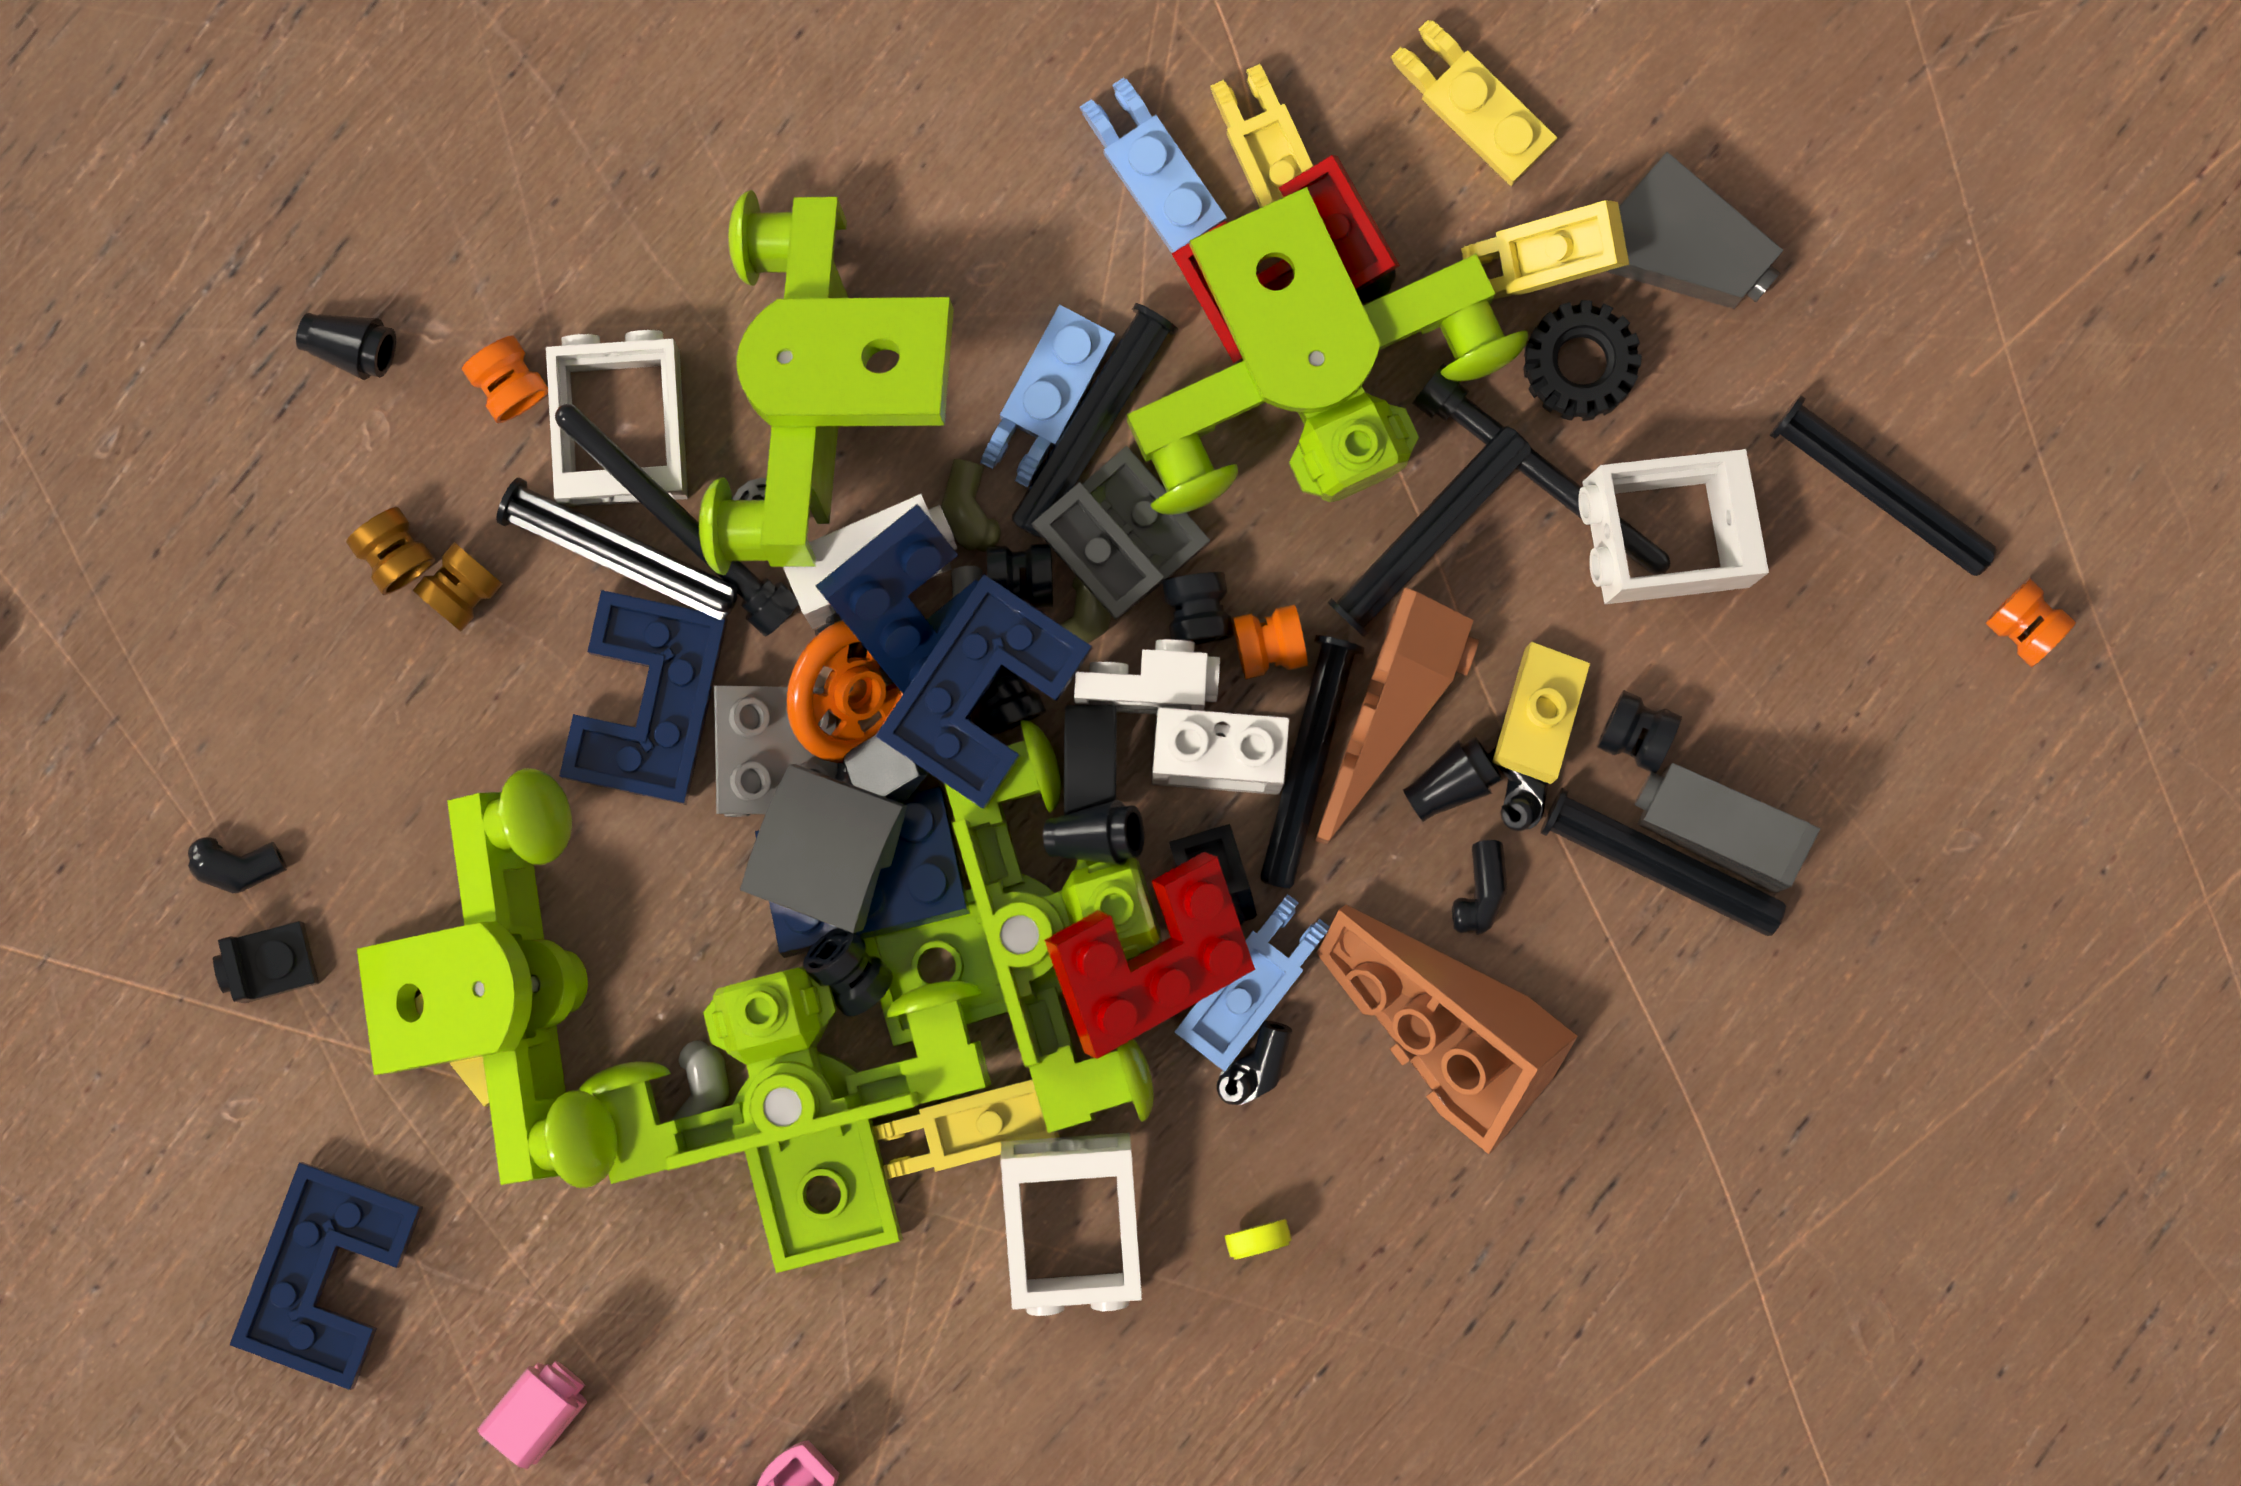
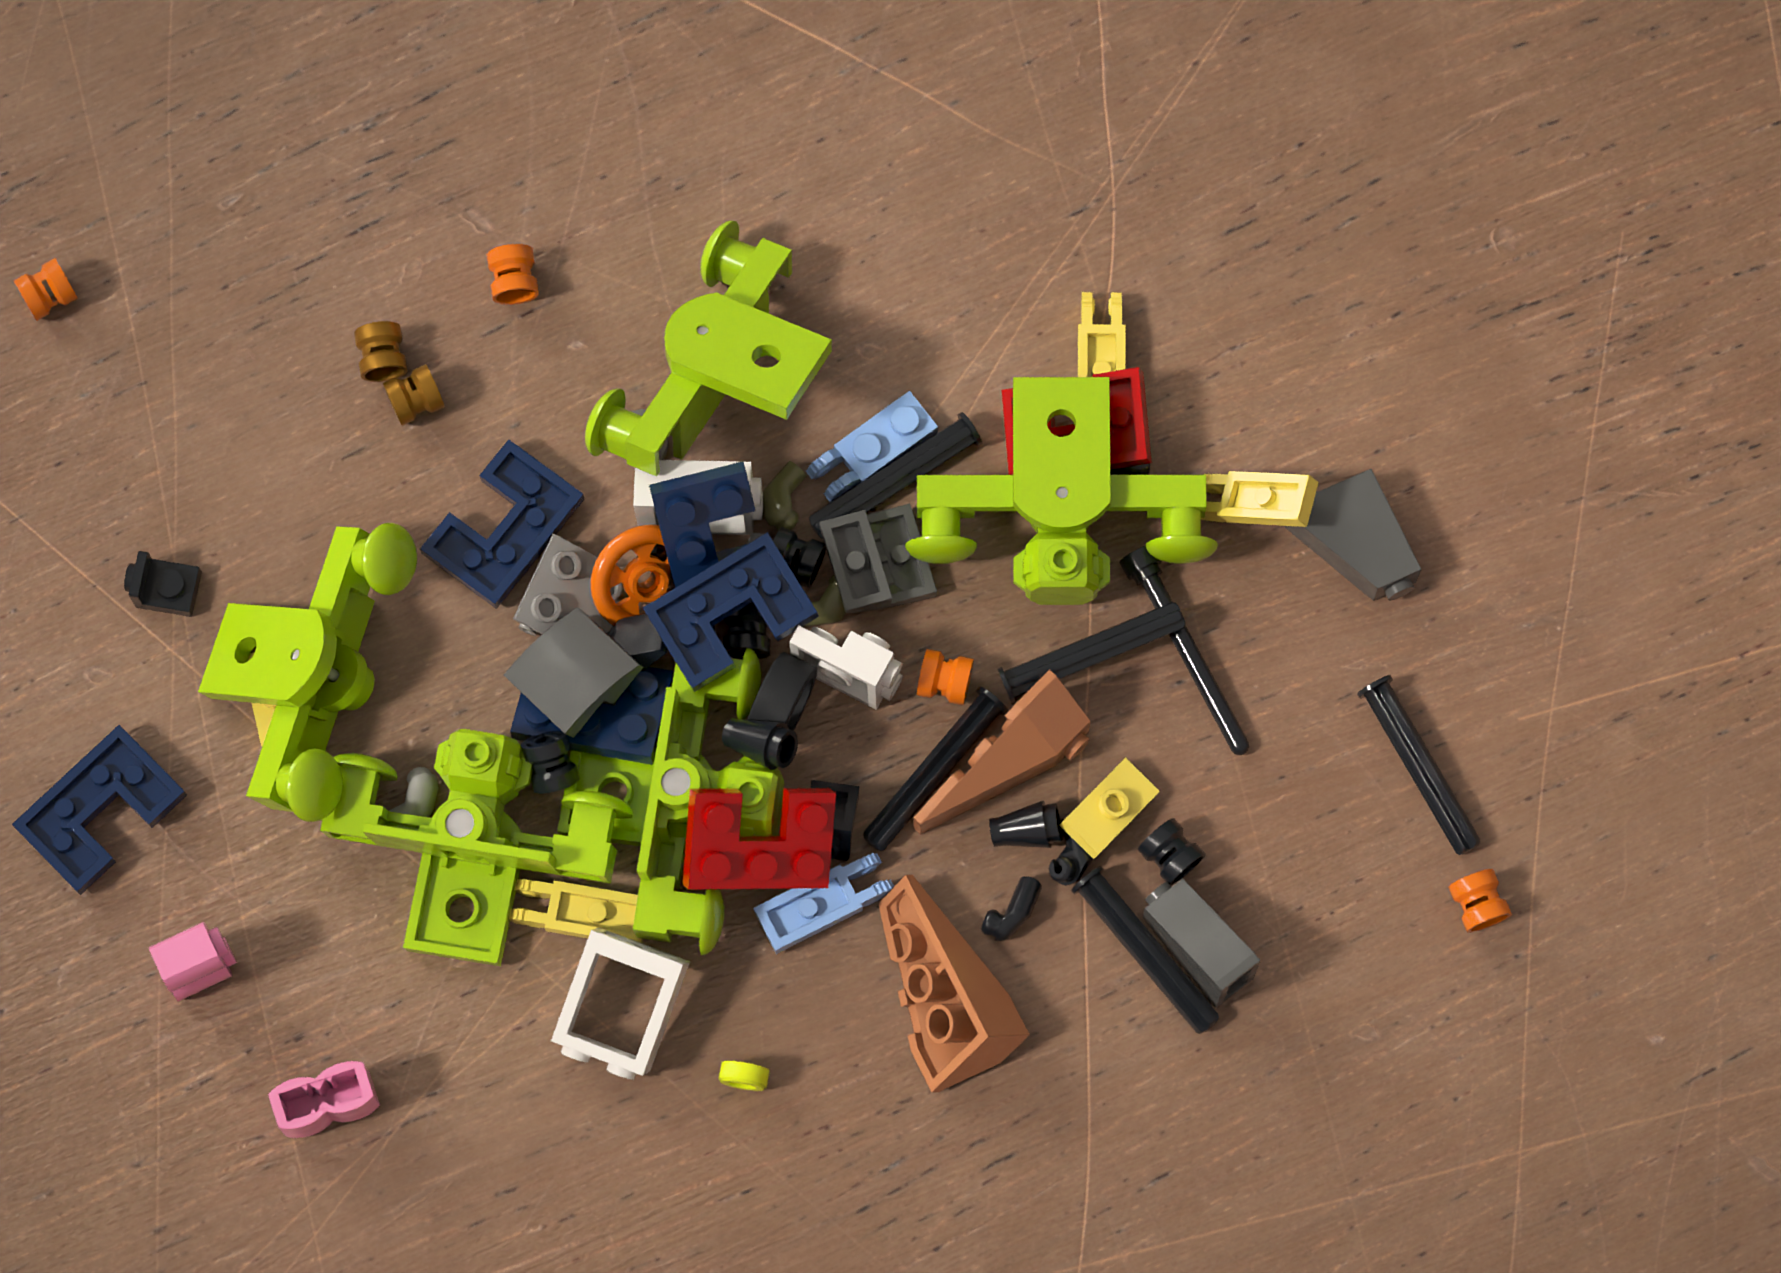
camera: 25 degrees right, 10 degrees down
(230, 872) = (170, 515): black arm -> none
(350, 343) = (422, 206): black cone -> none
(586, 353) = (558, 377): white window -> none
(616, 550) = (530, 417): axle -> none
(766, 603) = (614, 495): black piece -> none
(1155, 171) = (1016, 328): light blue hinge -> none
(1198, 607) = (907, 631): black wheel -> none
(1244, 760) = (881, 739): white window -> none
(1259, 1070) = (799, 963): black arm -> none
(1477, 106) = (1258, 387): light yellow hinge -> none
(1582, 322) = (1255, 558): black tyre -> none
(1732, 514) = (1312, 707): white window -> none

